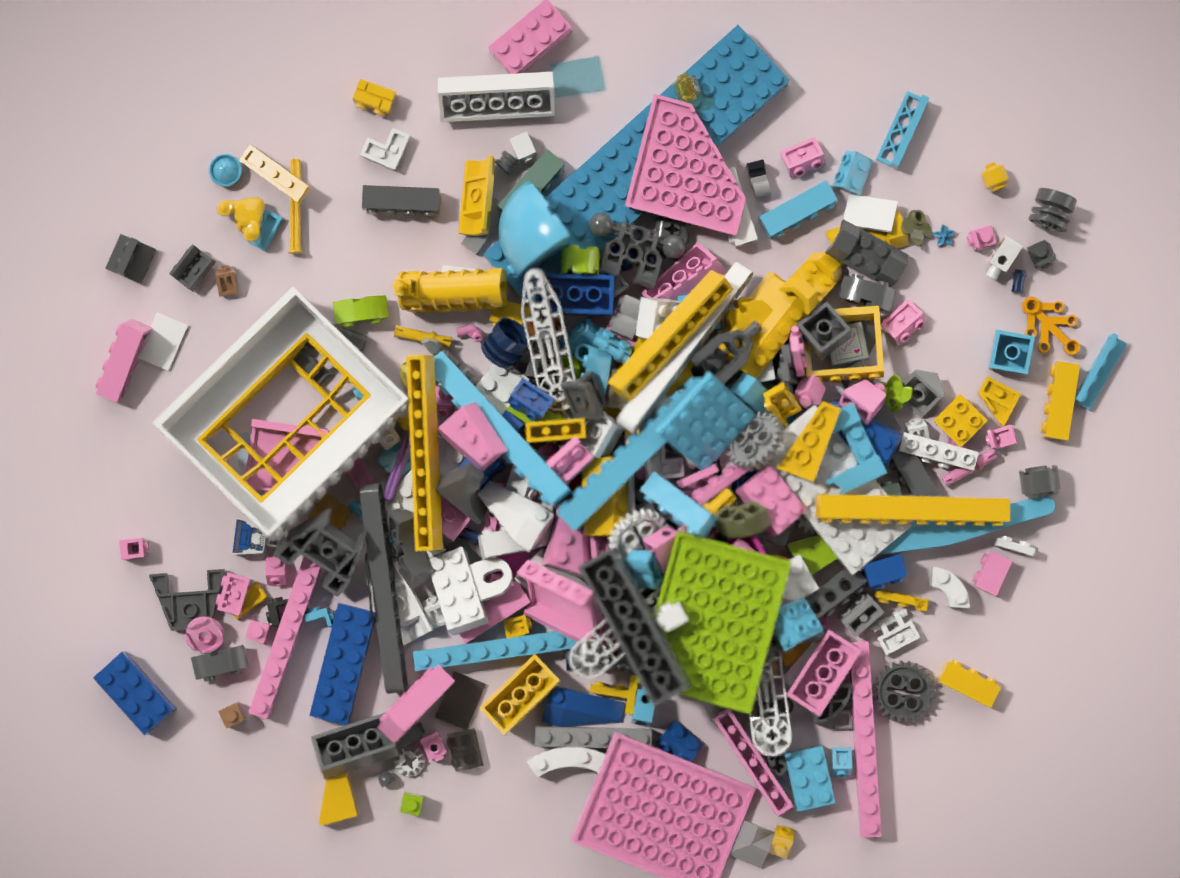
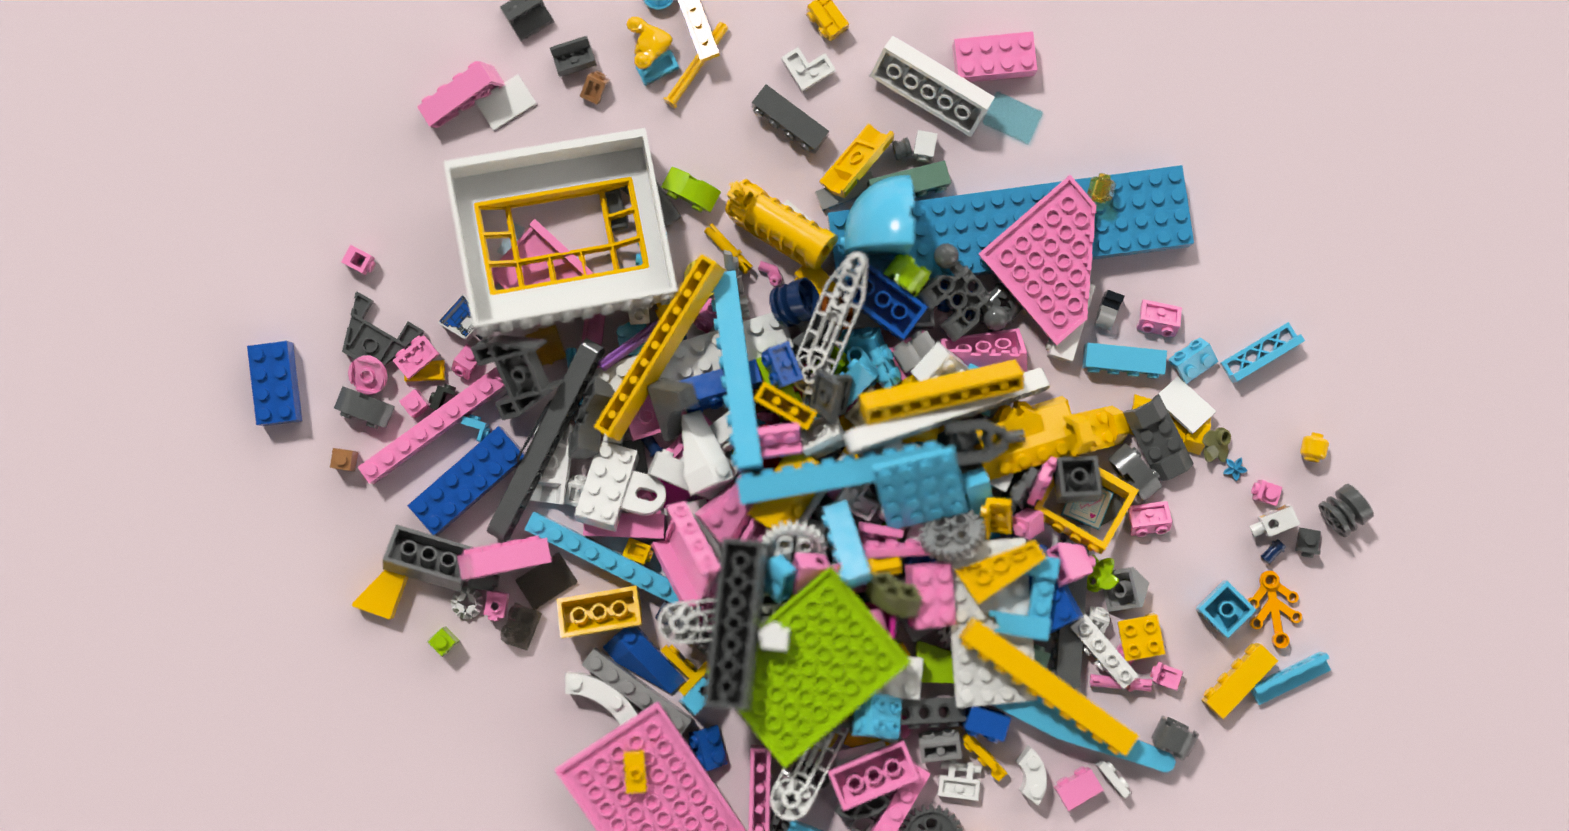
camera: 30 degrees right, 0 degrees up
(385, 778) = (436, 603): dark grey hinge -> none
(472, 436) = (710, 362): bright pink wedge -> none
(635, 799) = (634, 771): none -> yellow plate
(998, 398) = (1186, 641): yellow wing -> none

